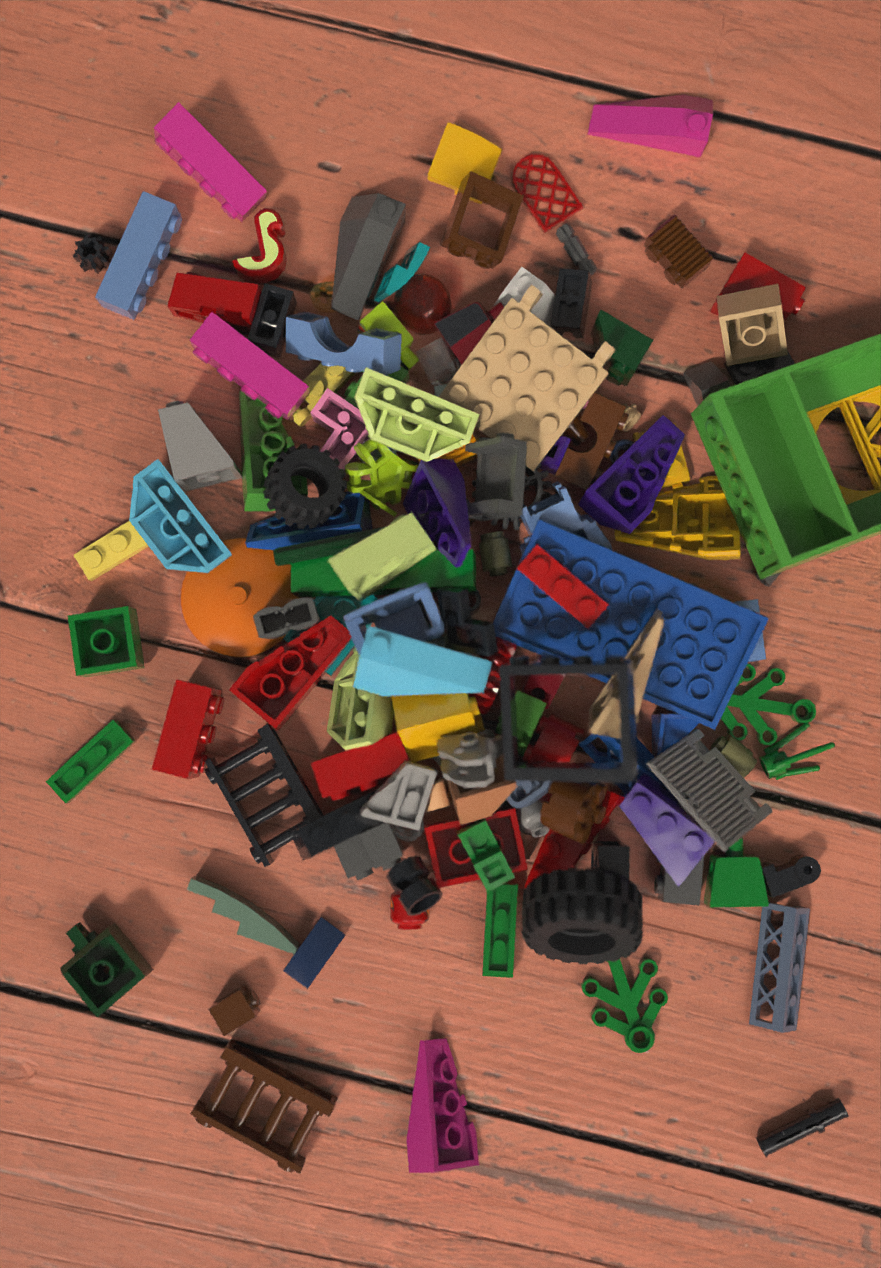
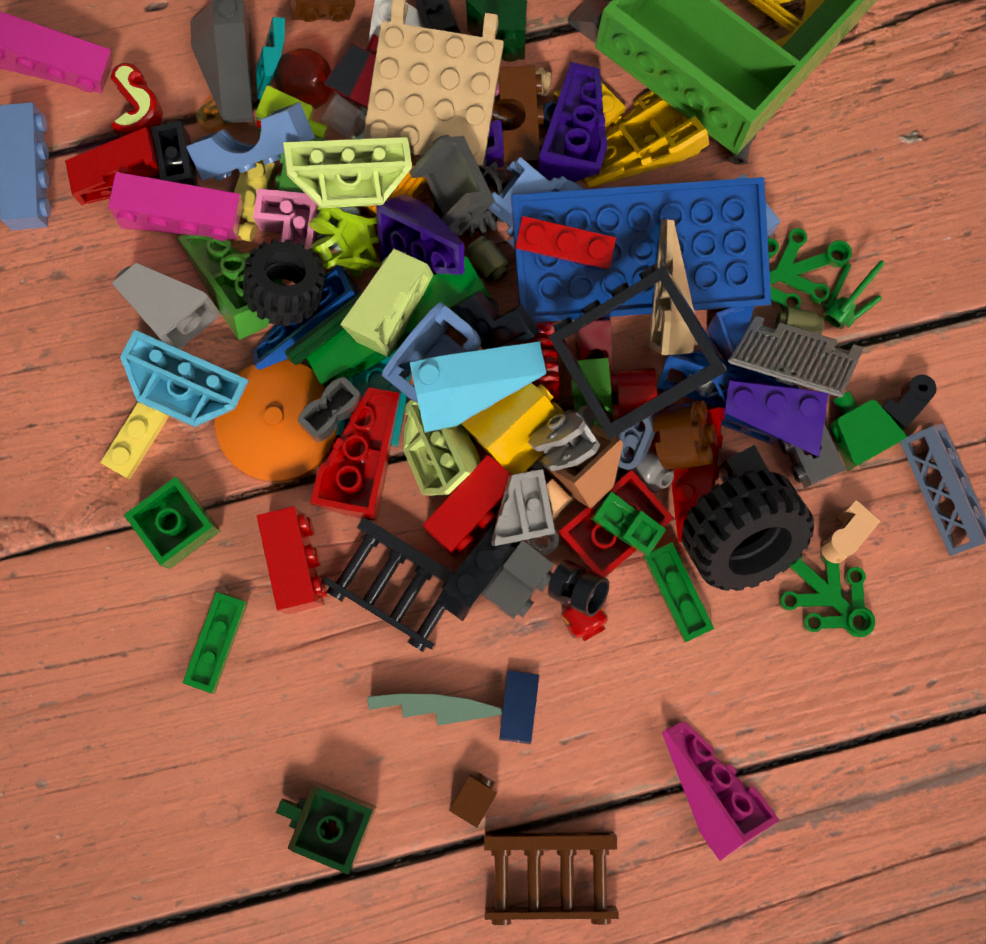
camera: 25 degrees left, 5 degrees down
(674, 961) = (855, 530): none -> light nougat leg

